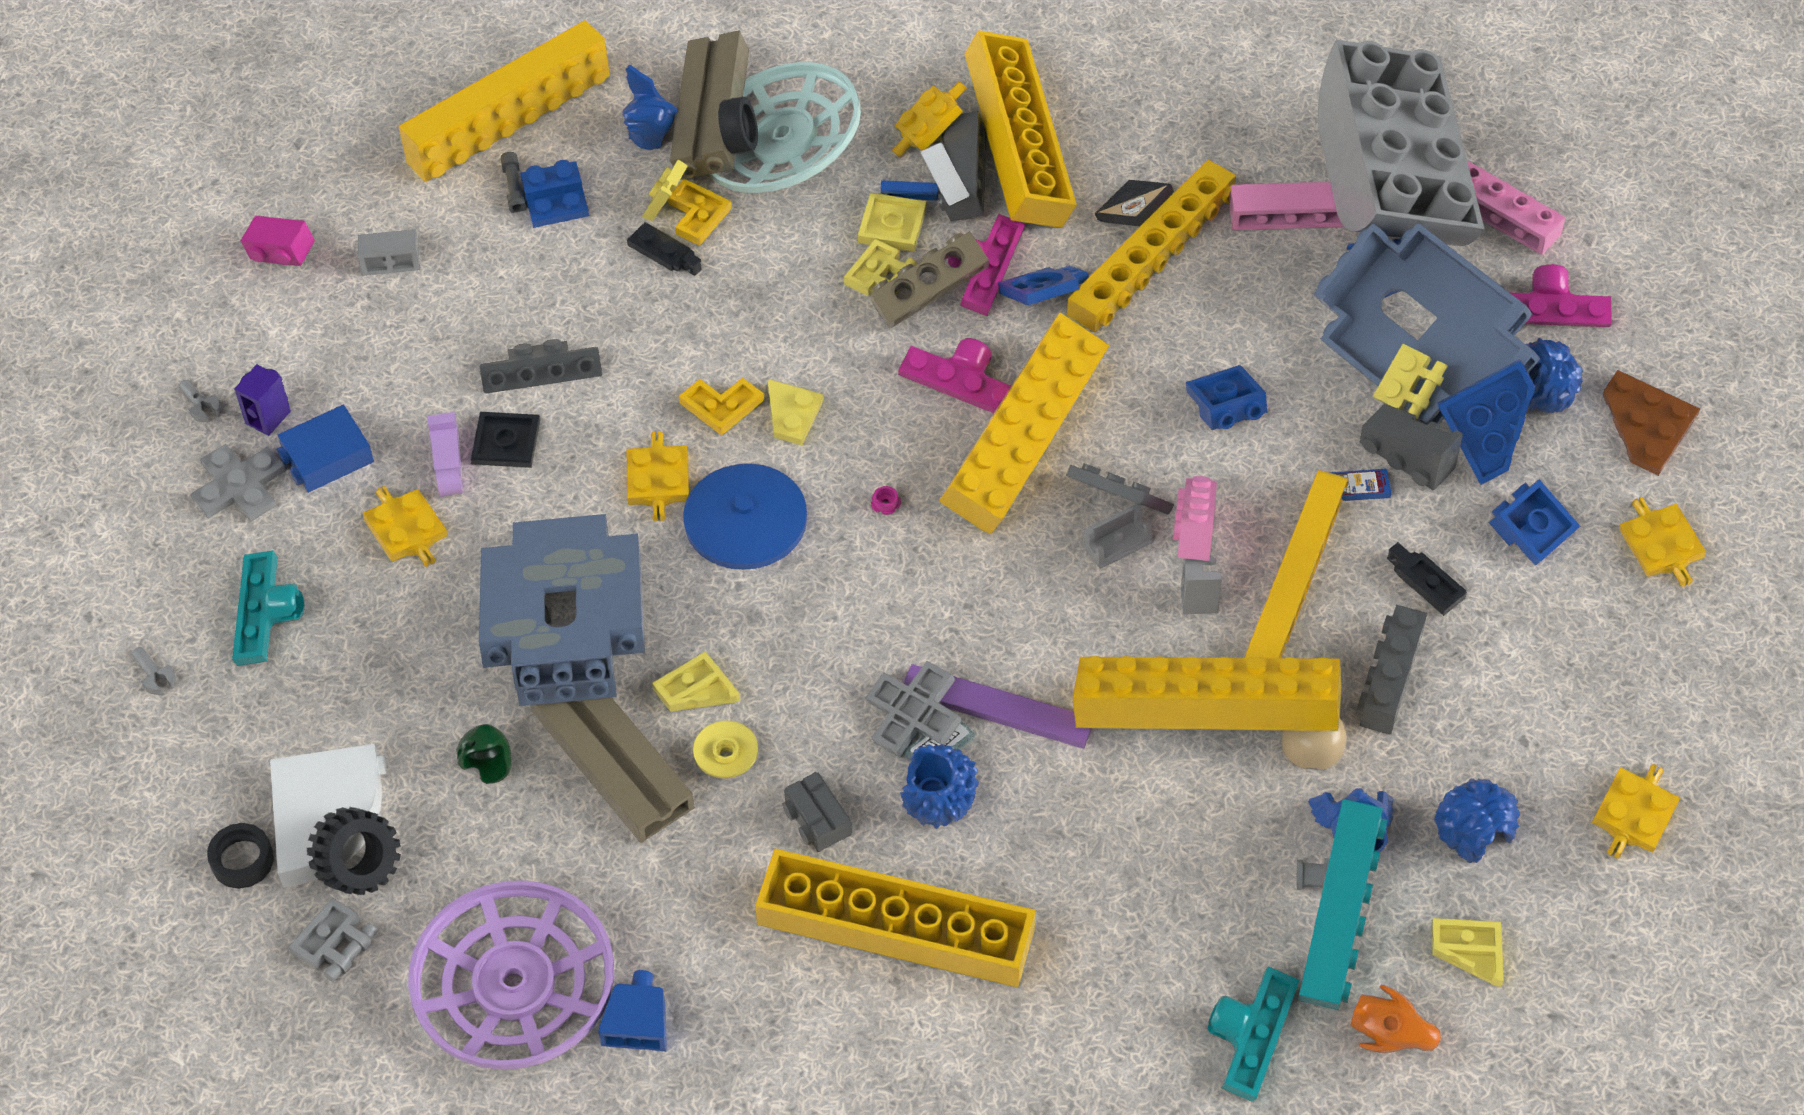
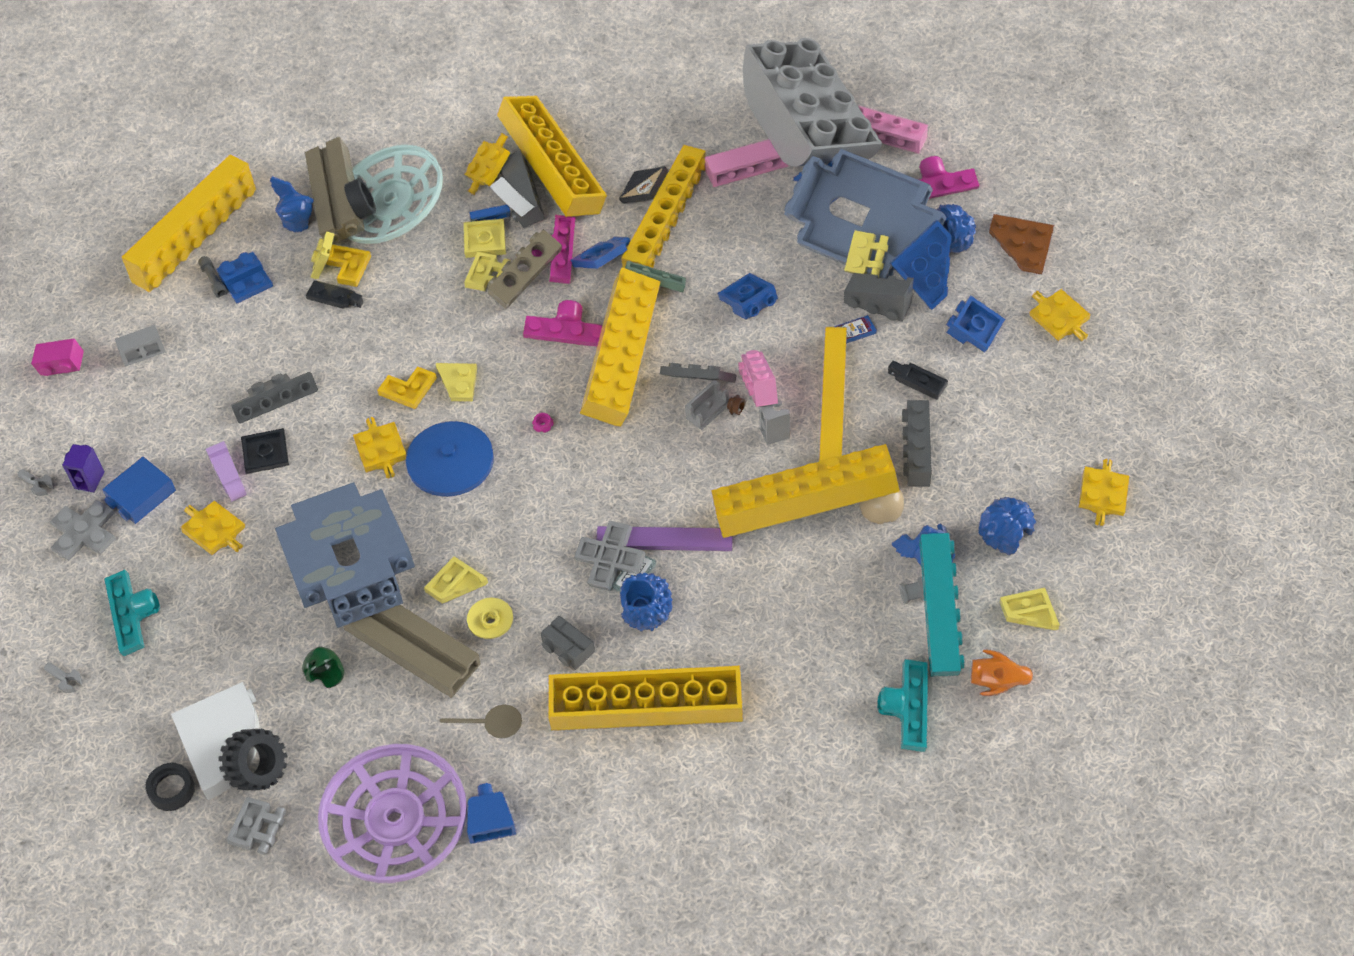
camera: 15 degrees left, 0 degrees up
(694, 894) = (499, 722): none -> dark tan piece
(1120, 344) = (667, 279): none -> sand green tile
(1158, 543) = (734, 404): none -> reddish brown plate

